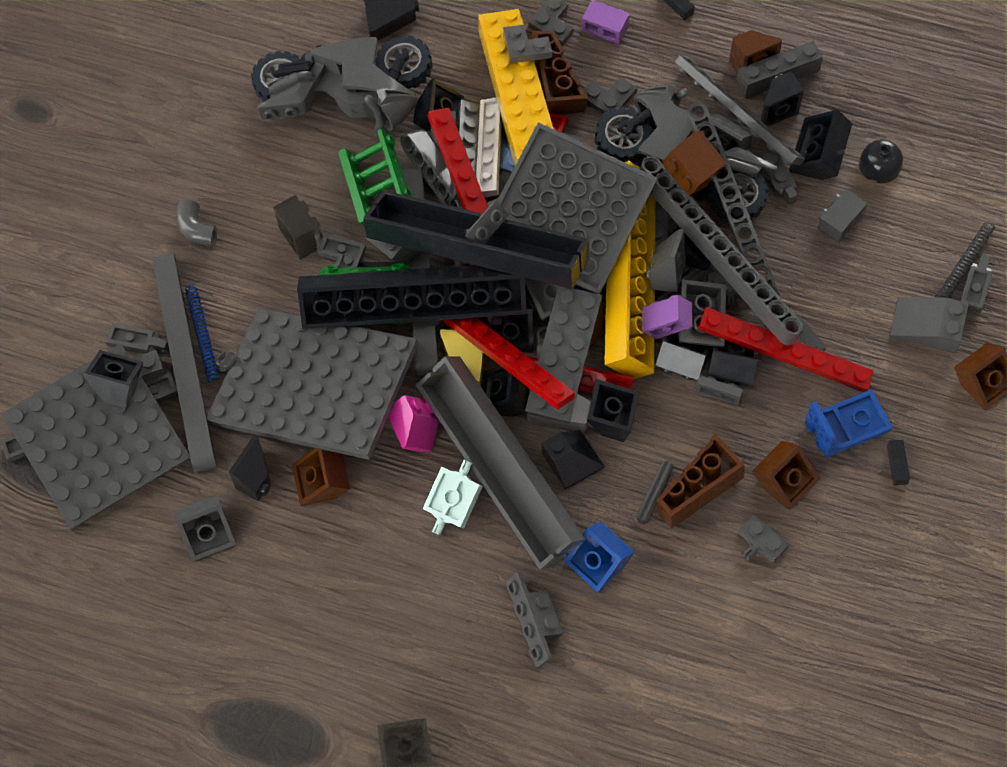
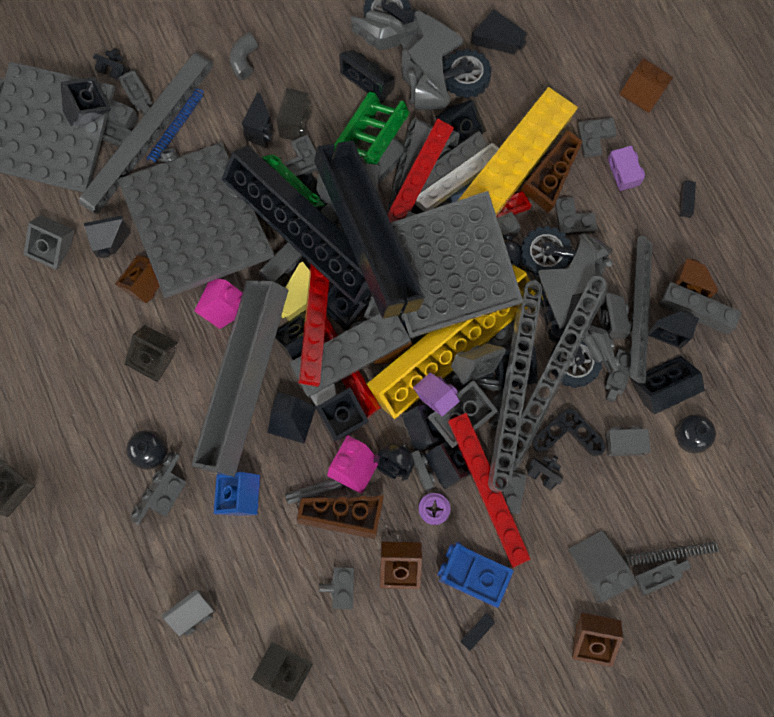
camera: 40 degrees right, 10 degrees up
(77, 342) = (114, 56): none -> black hips
(277, 259) = (257, 123): none -> black slope
(318, 143) = (366, 74): none -> black slope
(399, 524) = (150, 352): none -> clear smoke slope
(452, 497) = (194, 369): light aqua plate -> none
(485, 600) = (146, 449): none -> black cylinder
(487, 223) = (379, 224): dark grey hinge -> none
(523, 49) = (545, 134): dark grey plate -> none
(662, 438) = (353, 465): none -> dark pink slope
(672, 678) = (189, 613): none -> slope
(692, 403) = (395, 461): none -> black cylinder
(694, 163) = (556, 315): reddish brown slope -> none
(761, 399) = (428, 501): none -> medium lavender gear
(785, 252) = (566, 427): none -> black beam
(792, 645) = (282, 671): none -> clear smoke slope
(800, 299) = (553, 477): none -> black hips

